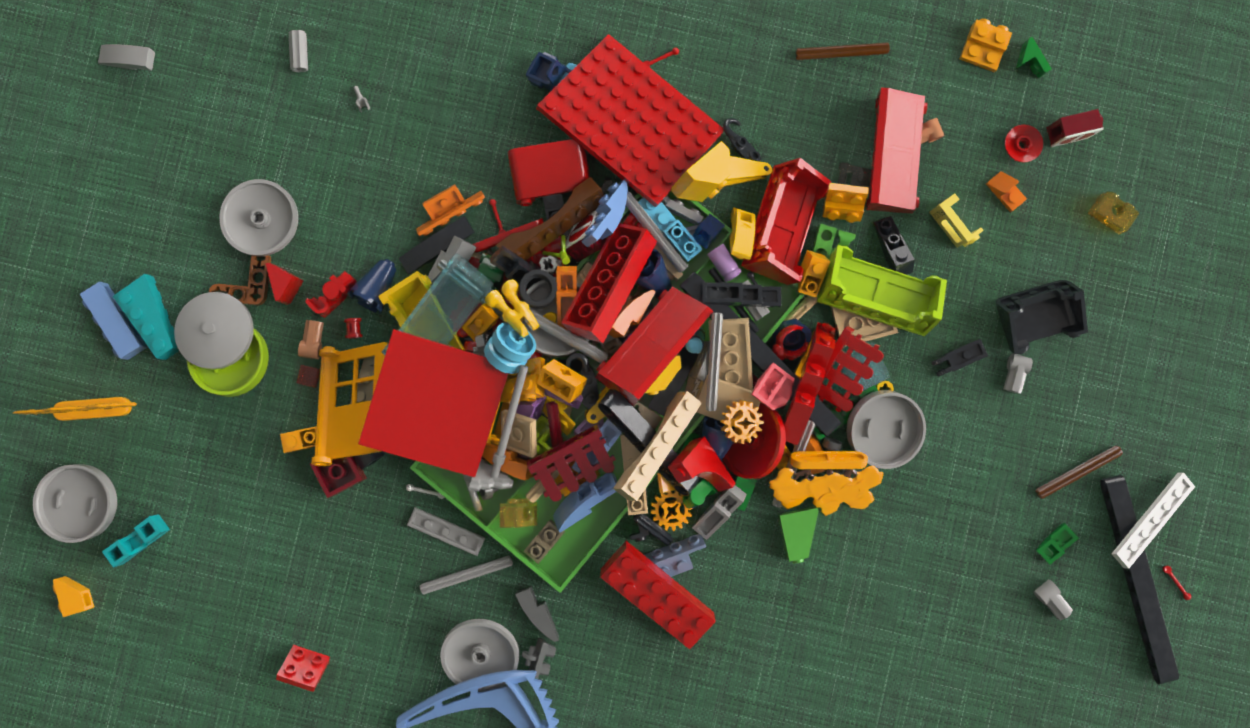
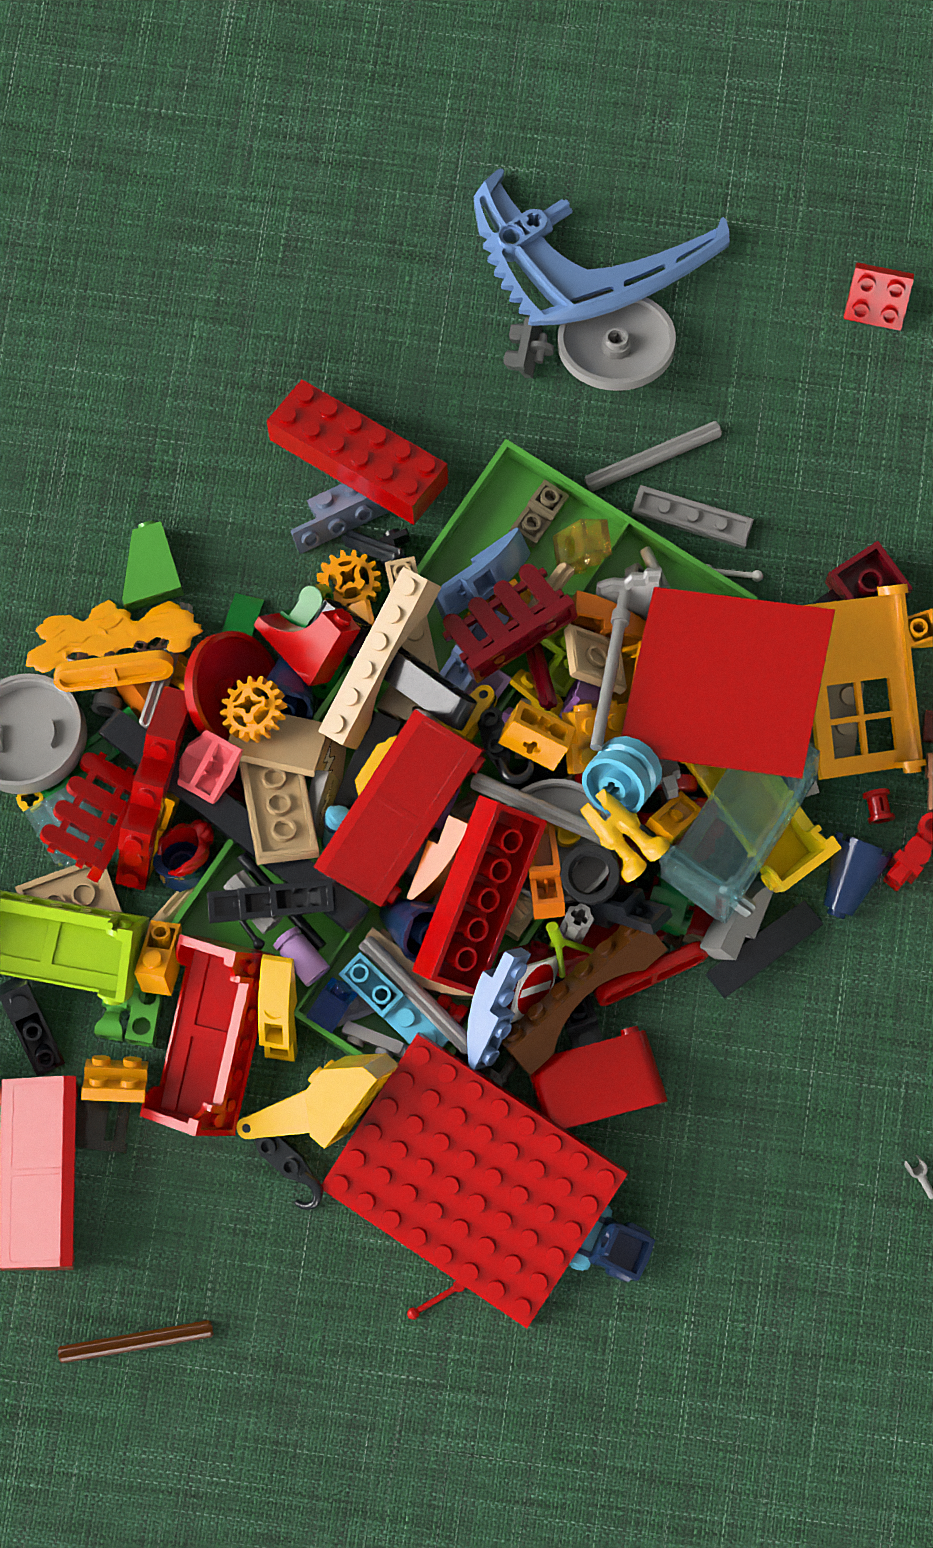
camera: 175 degrees right, 10 degrees down
(445, 206) = (756, 1012): orange bracket -> none
(492, 202) = (684, 1030): red hinge -> none
(537, 613) = (537, 411): dark grey slope -> none
(714, 361) = (304, 792): light grey axle -> none
(719, 511) = (274, 585): light grey slope -> none

